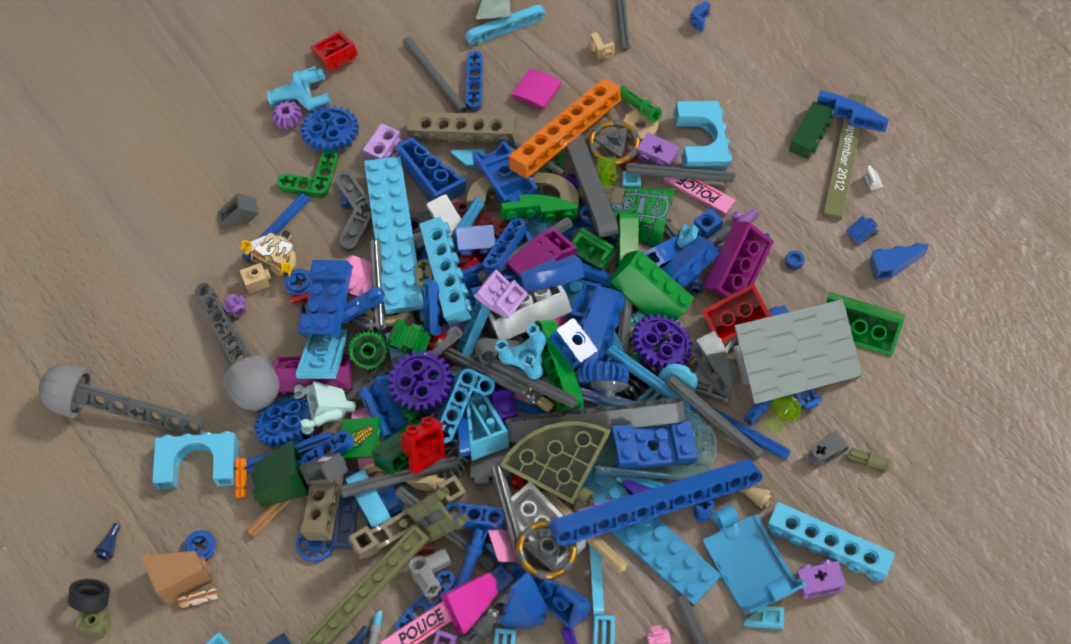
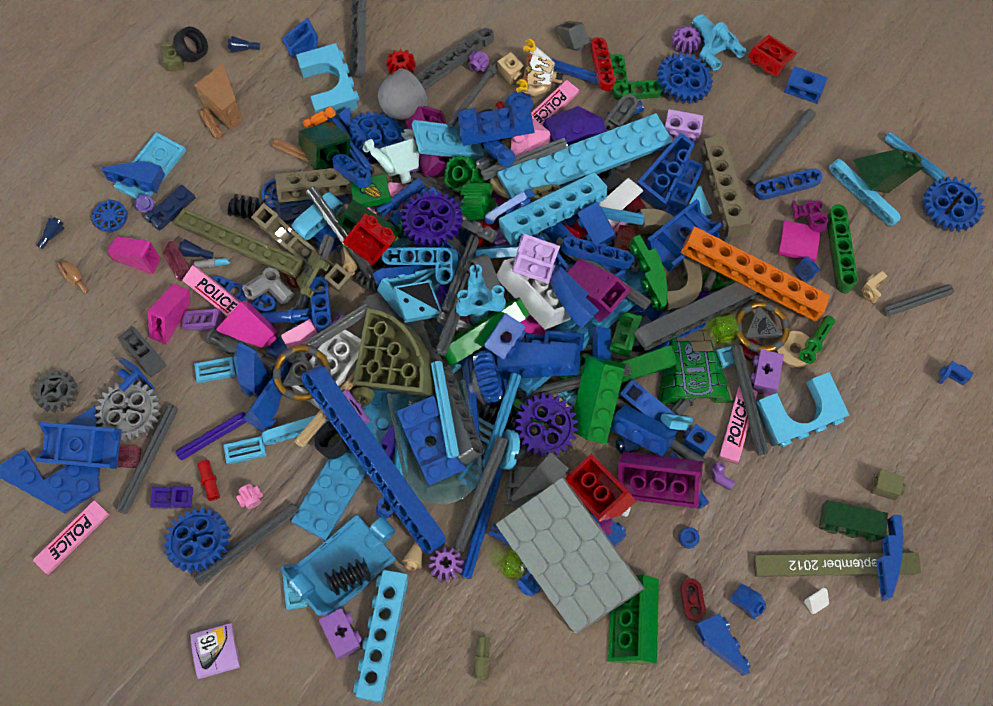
camera: 70 degrees right, 5 degrees up
(131, 476) = (301, 38): none -> blue slope
(199, 537) = (252, 103): blue gear -> none
(203, 388) = (400, 60): none -> red gear
(252, 299) = (489, 73): none -> dark grey bar
(253, 450) = (346, 118): none -> blue slope
(306, 193) = (602, 63): none -> red beam
(307, 244) = (555, 102): none -> bright pink tile
(324, 469) = (331, 171): dark grey slope -> none
(324, 573) = (244, 208): none -> black piece
(351, 234) = (574, 125): none -> dark purple wedge
(377, 34) = (805, 84): none -> blue brick
(451, 160) = (684, 187): none -> blue slope
(505, 418) = (417, 301): none -> medium azure tile
(510, 70) = (814, 214): none -> magenta piece
(555, 59) = (838, 255): none -> green beam
(567, 91) = (807, 269): none -> blue tile
(629, 419) = (444, 409): none -> medium azure axle
(636, 541) = (322, 439): none -> black tyre
(767, 556) = (348, 576): none -> black piece
(781, 468) = (445, 556): none -> medium lavender gear
(786, 95) = (888, 485): none -> olive brick
(827, 449) = (484, 617): dark grey piece -> none
(852, 272) = (693, 600): none -> dark red plate

